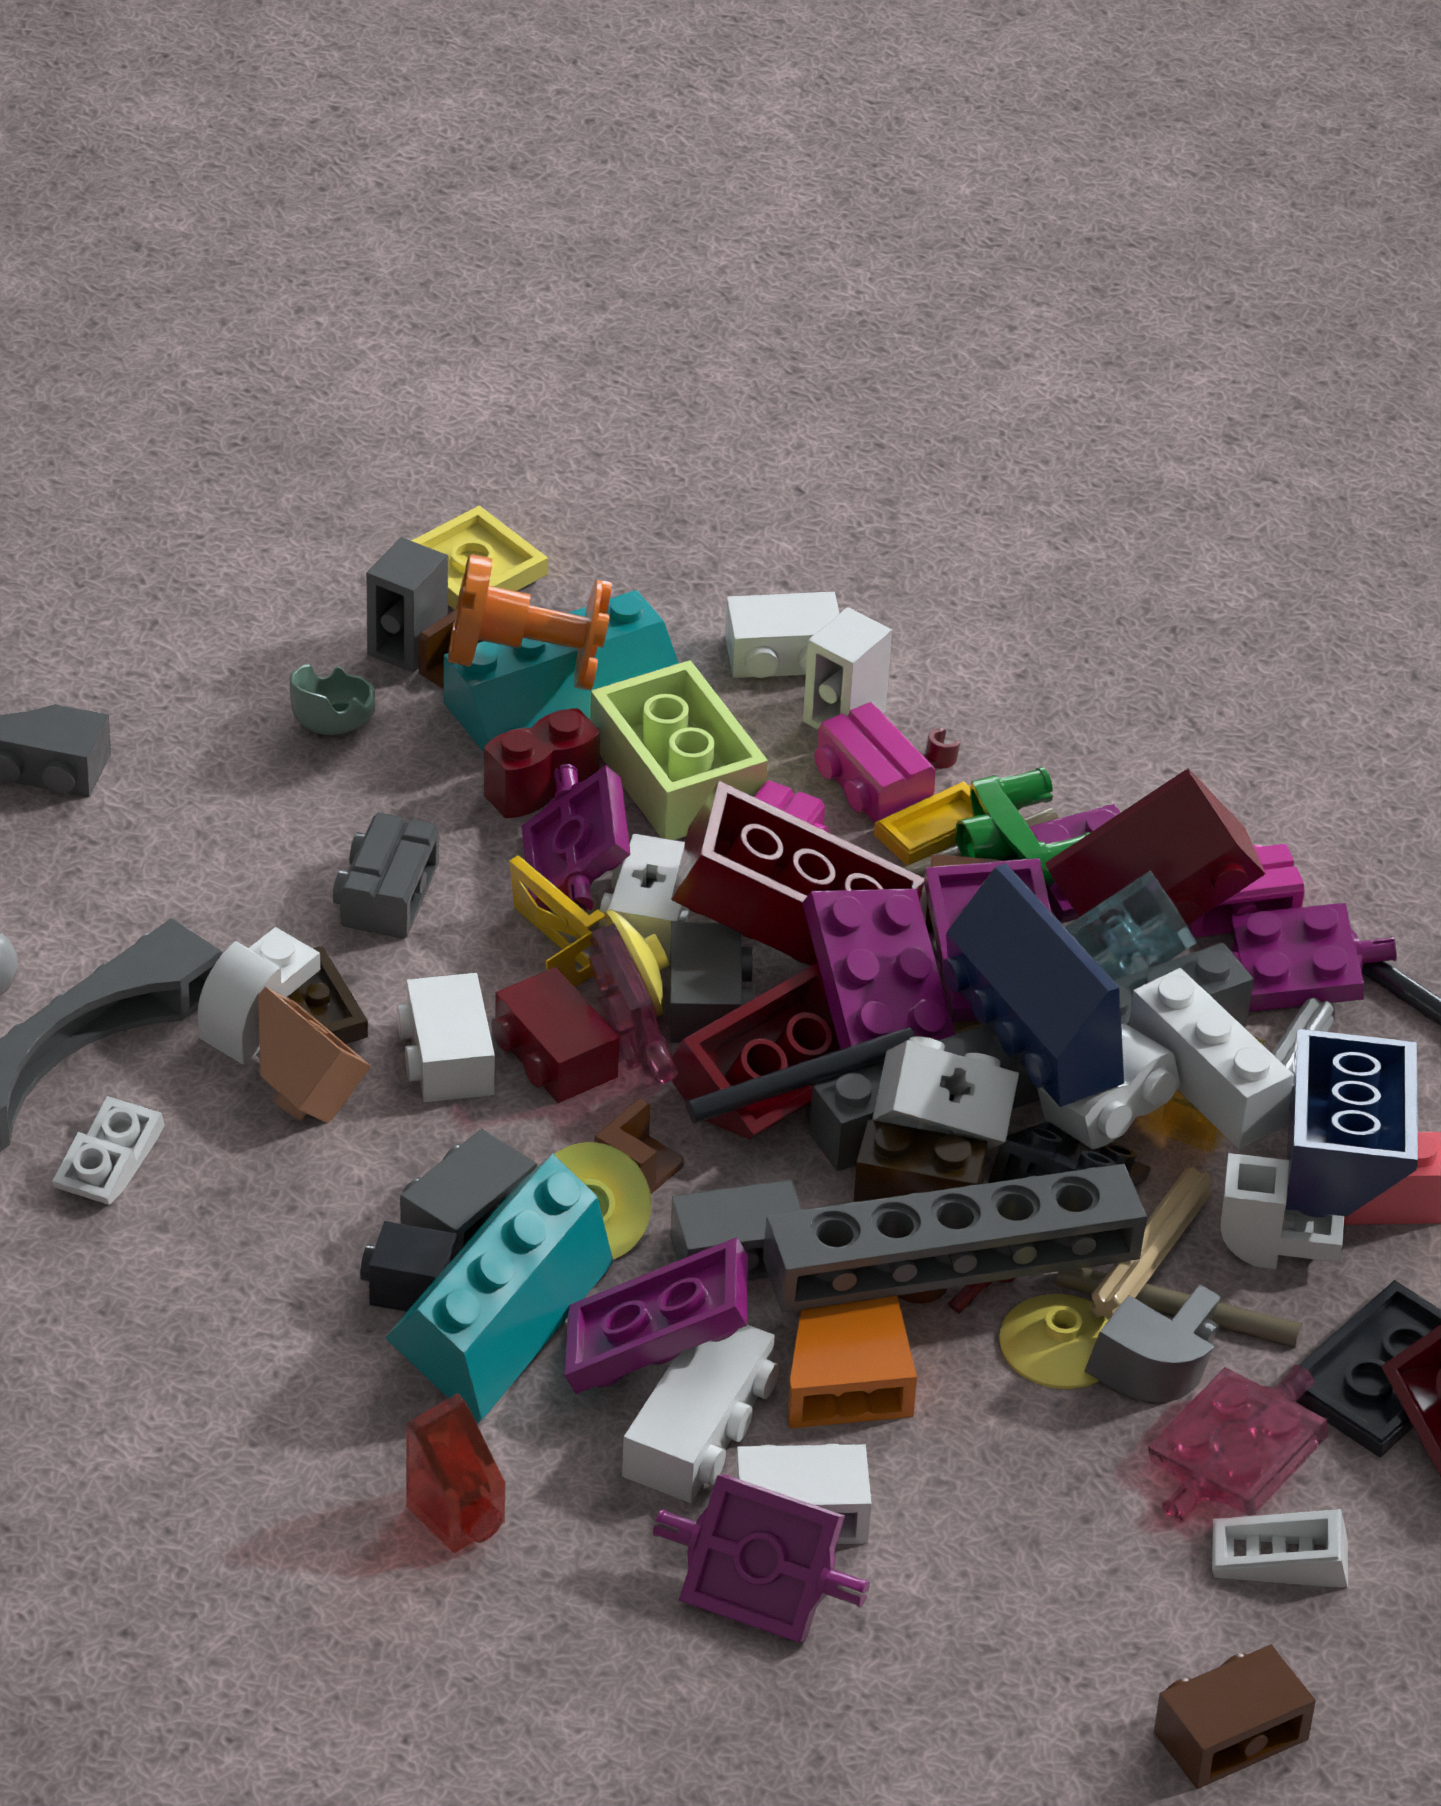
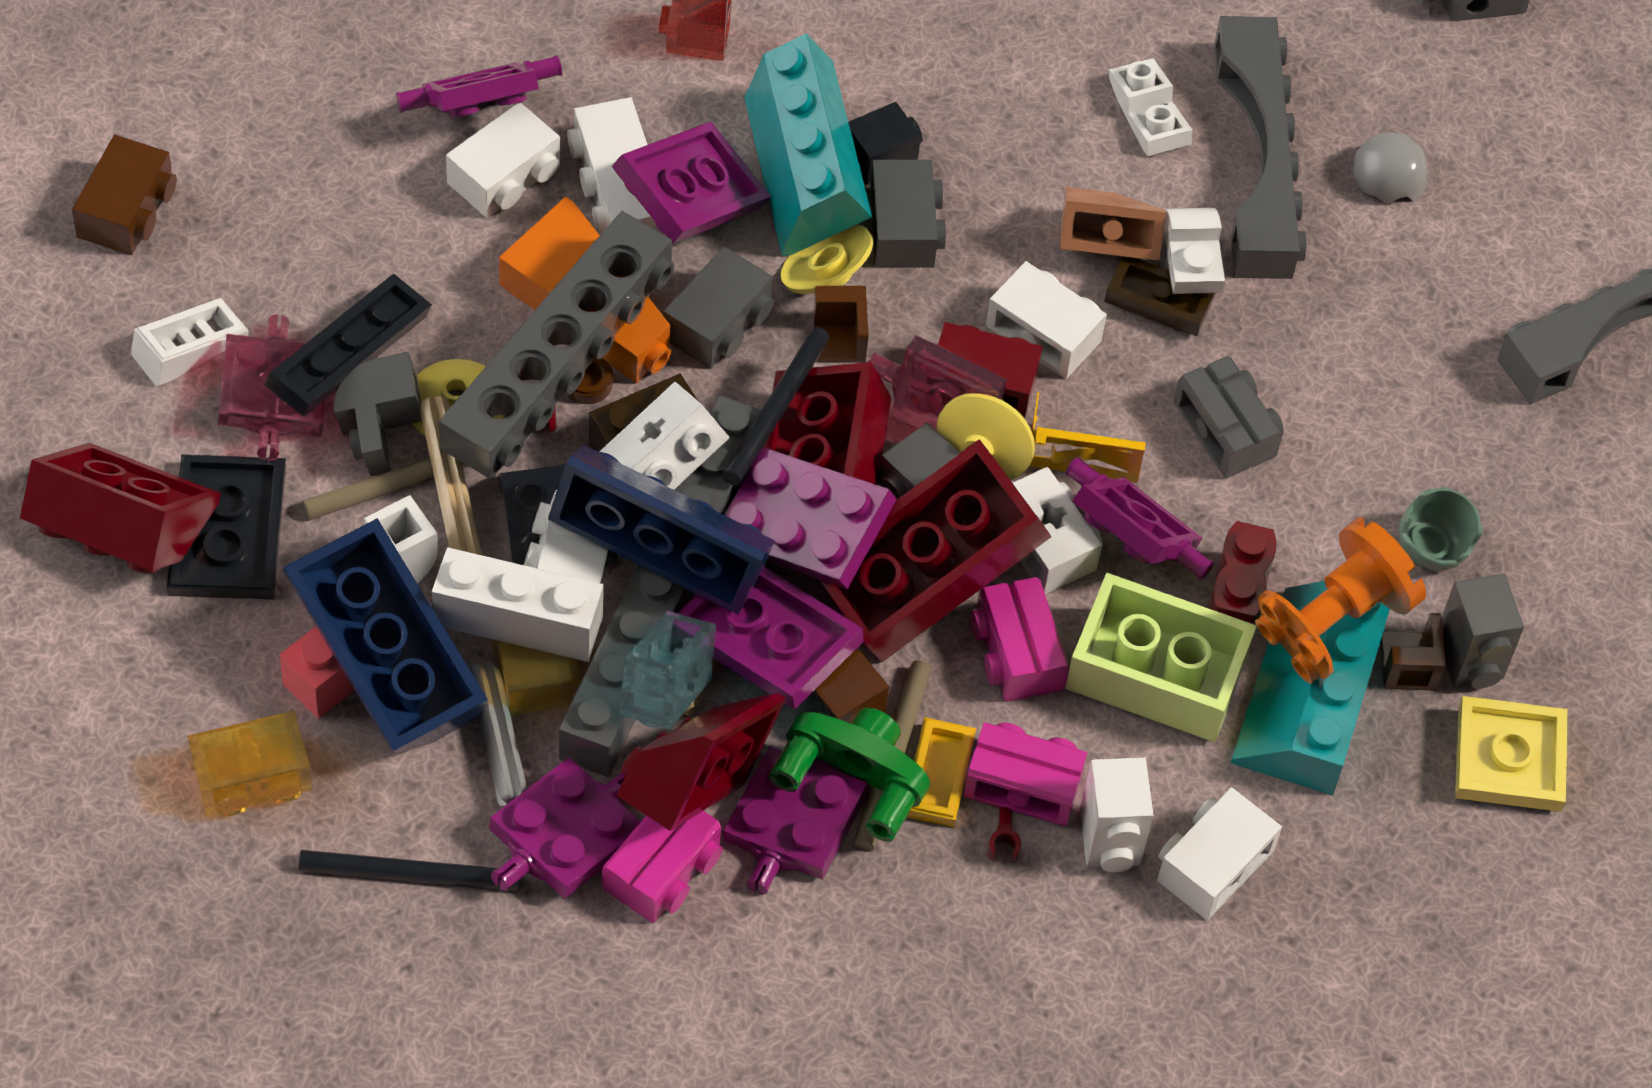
camera: 135 degrees right, 15 degrees up
(1140, 1401) = (347, 342): none -> black plate

